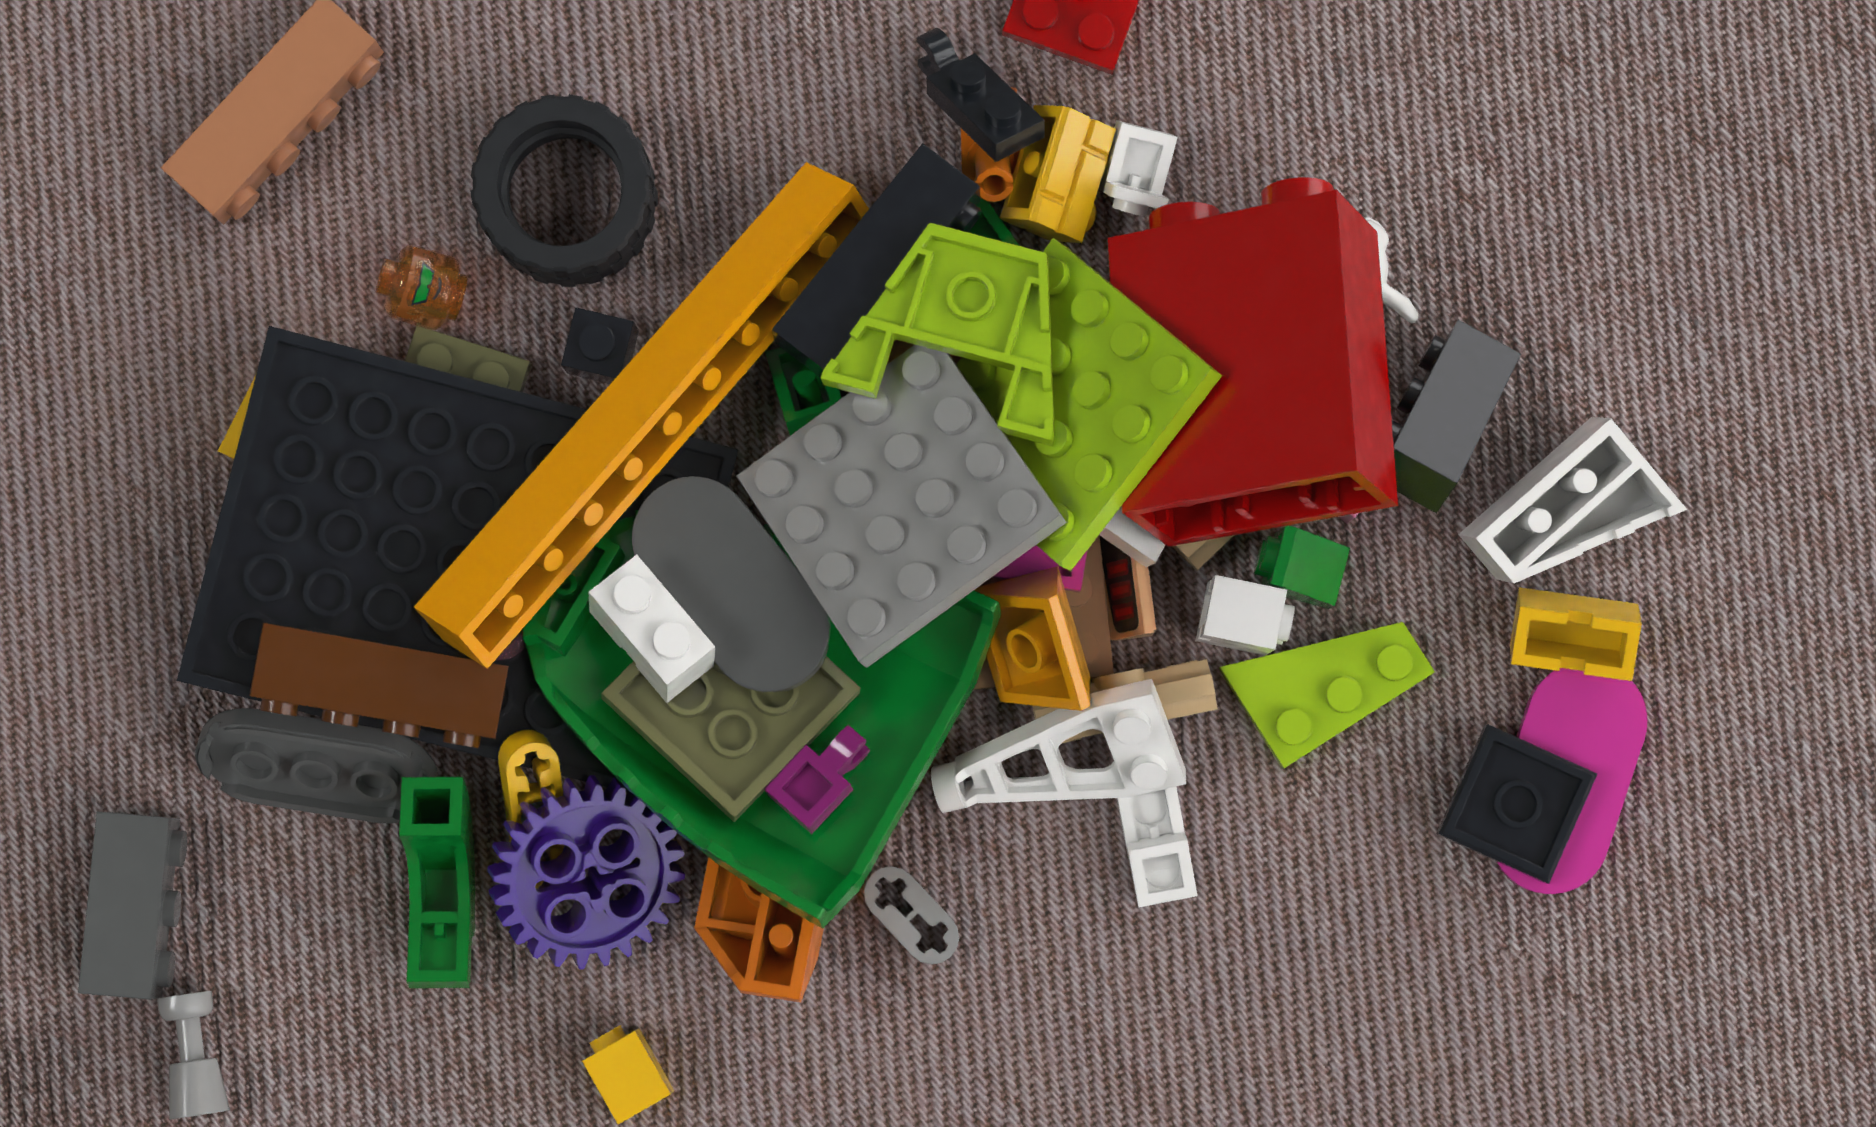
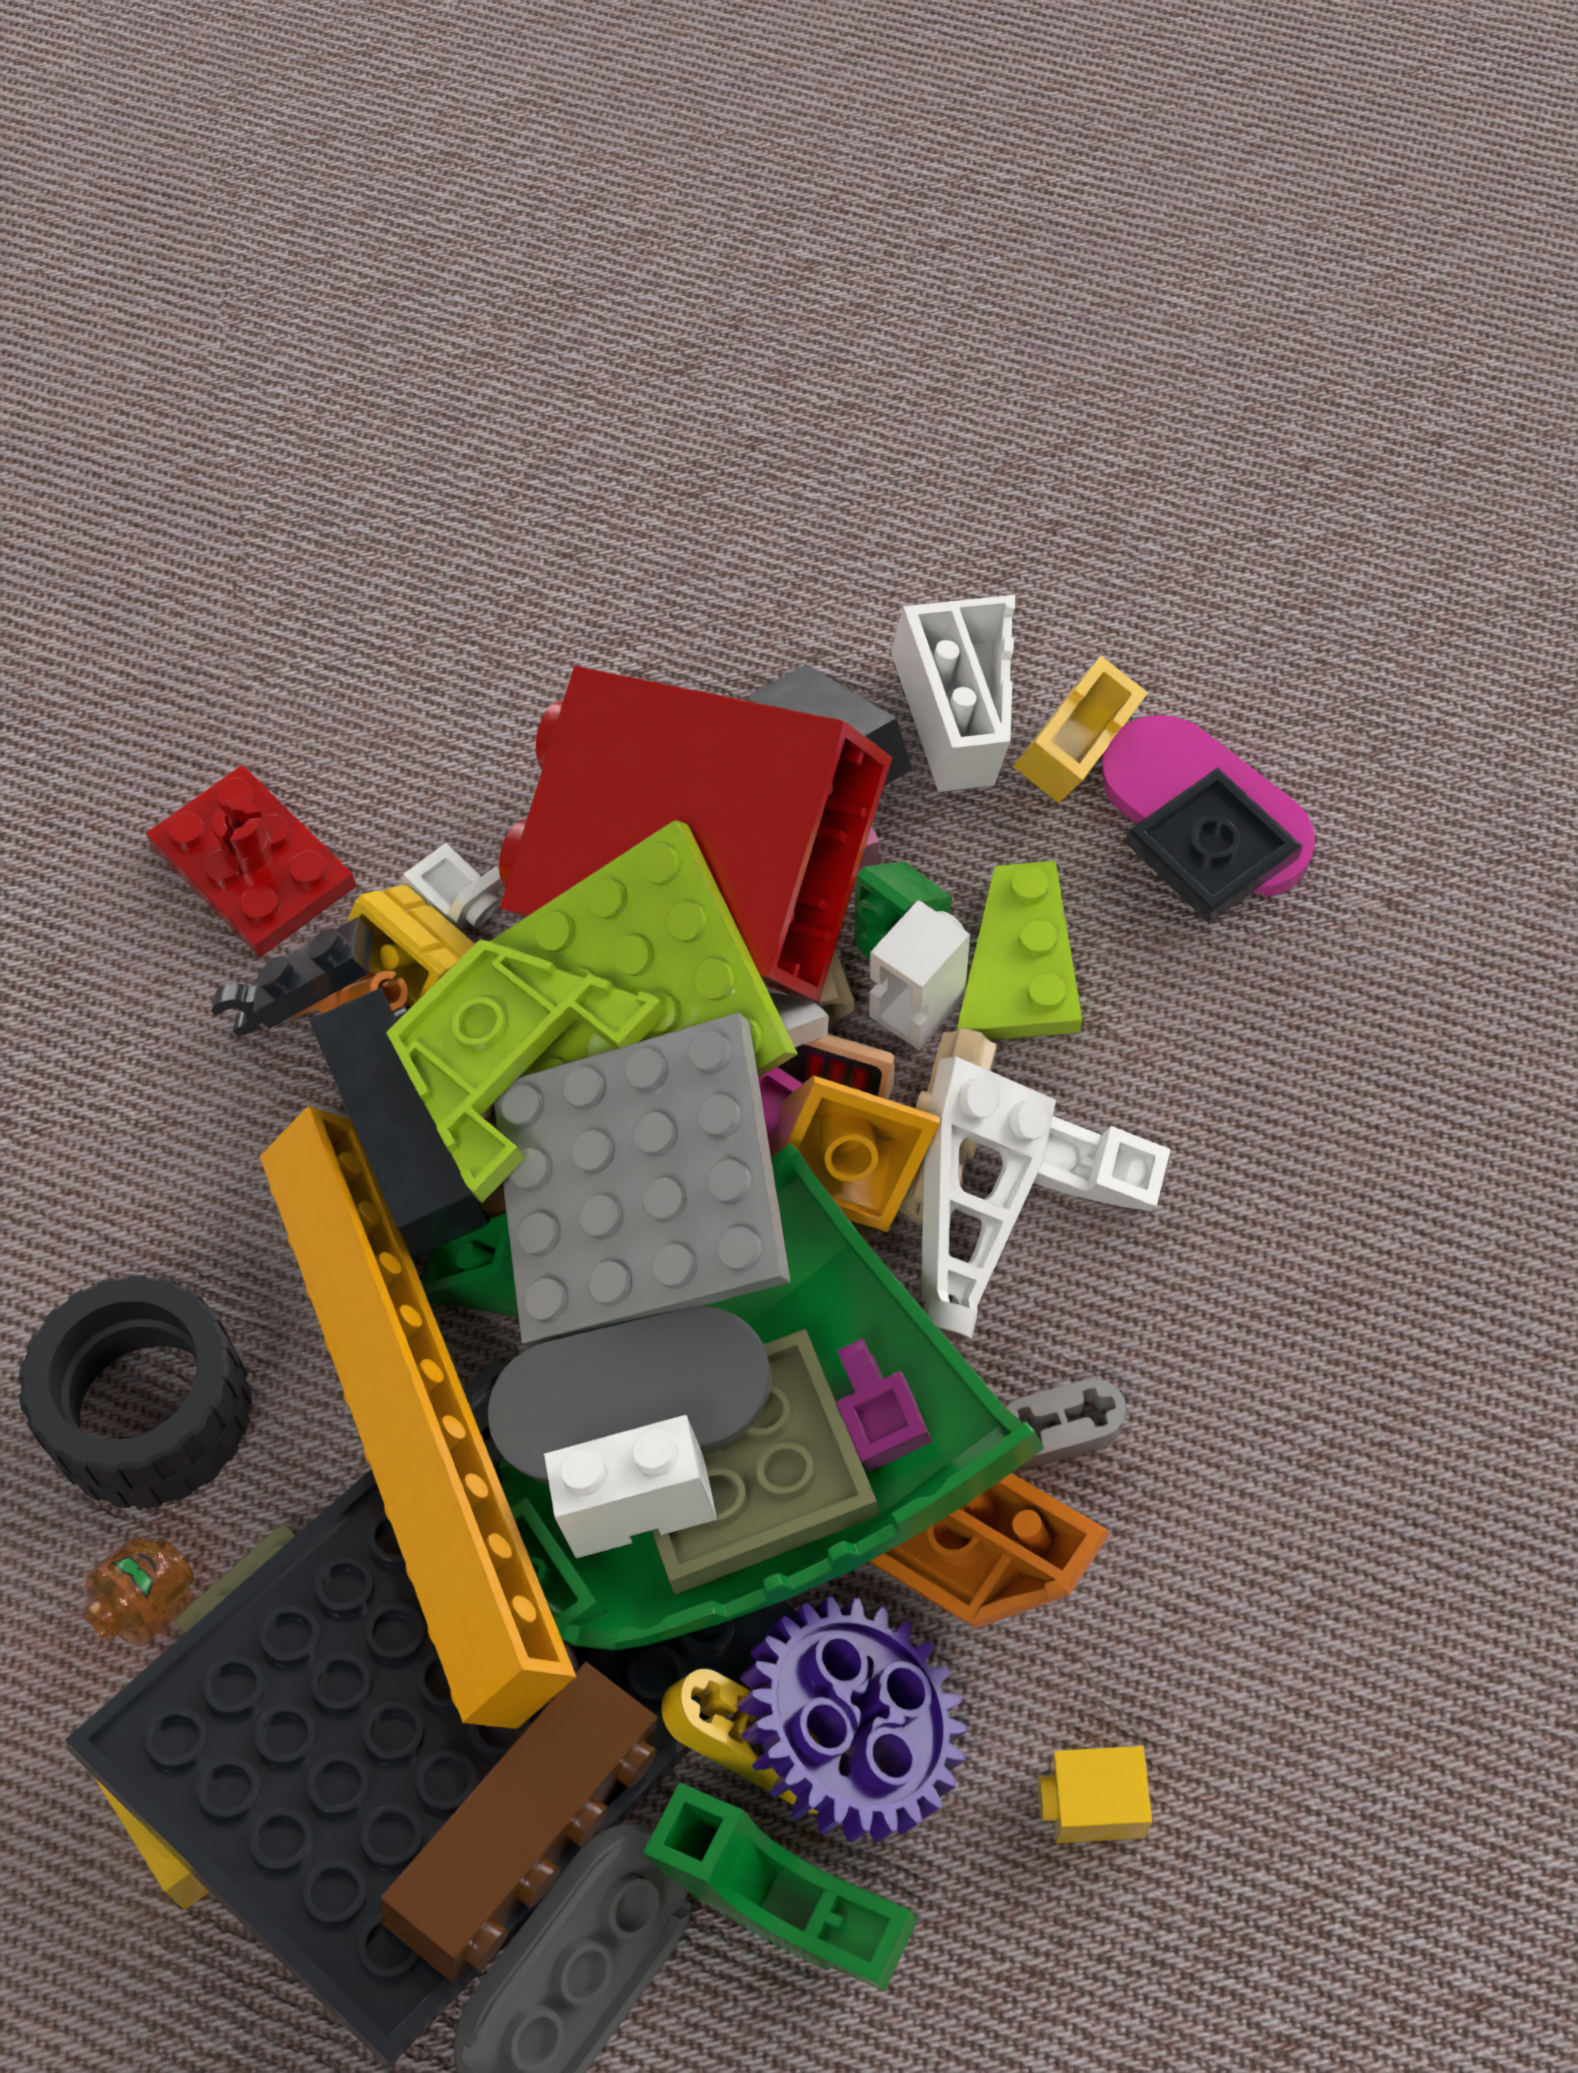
camera: 60 degrees left, 25 degrees down
(598, 345) = (312, 1439): black brick -> none

